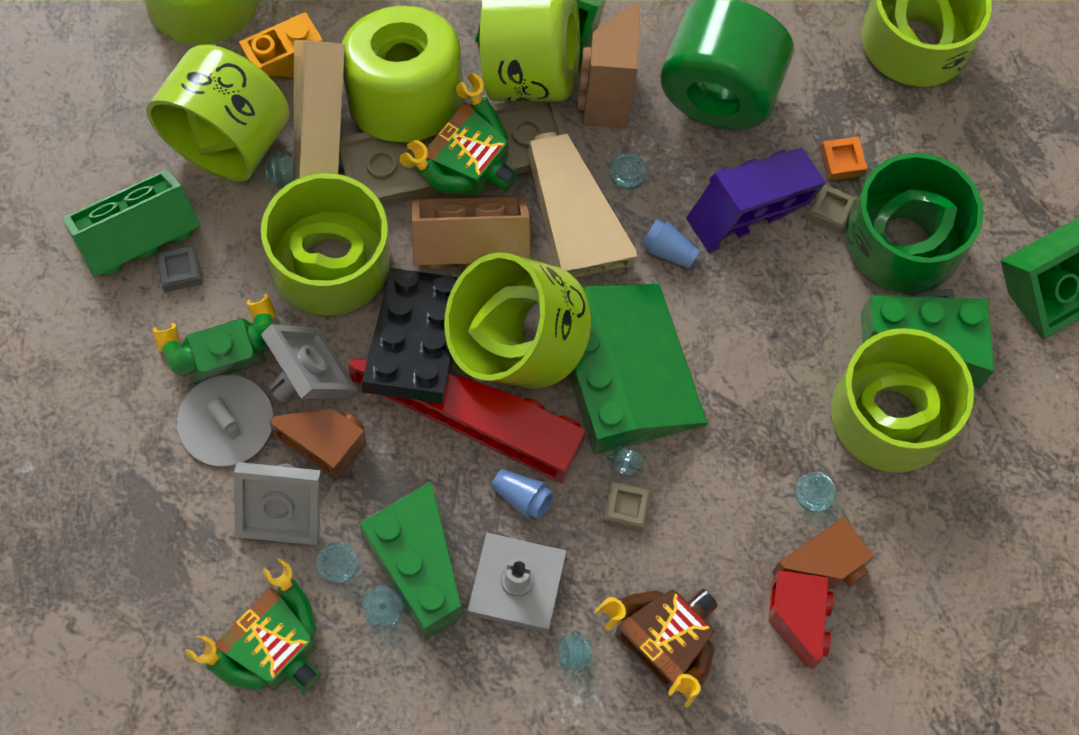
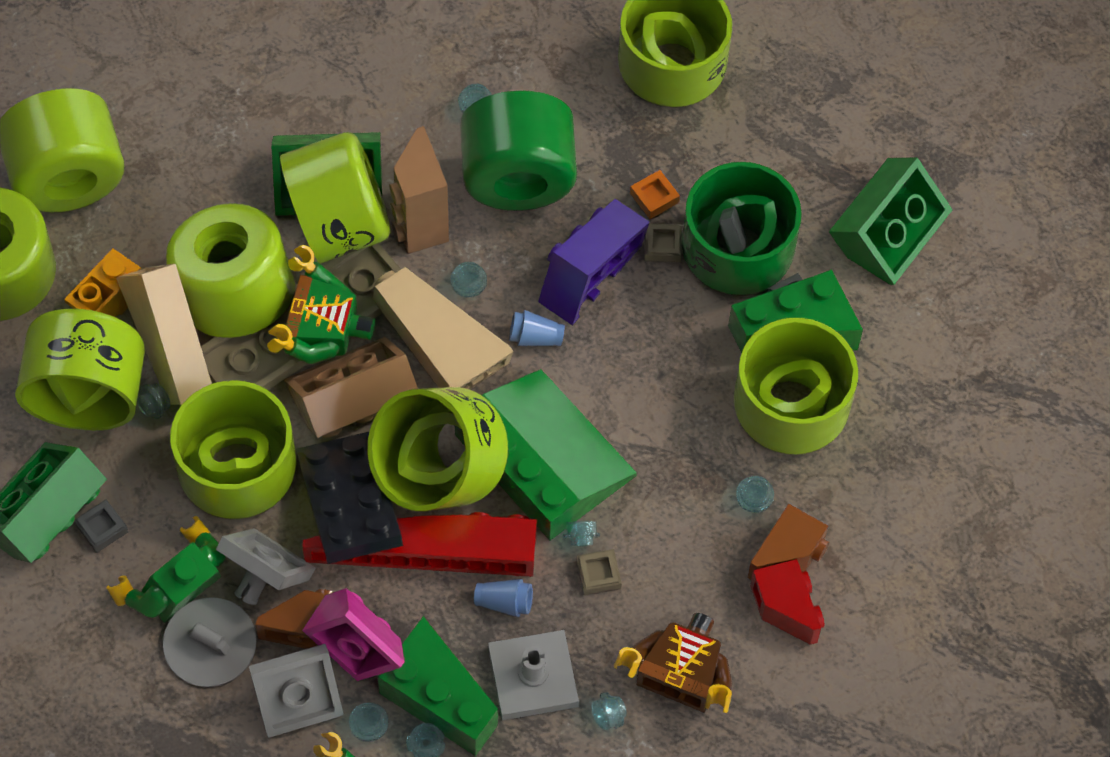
camera: 20 degrees left, 5 degrees down
(355, 473) = (355, 636): none -> dark pink slope
(904, 222) = (733, 230): none -> dark grey tile

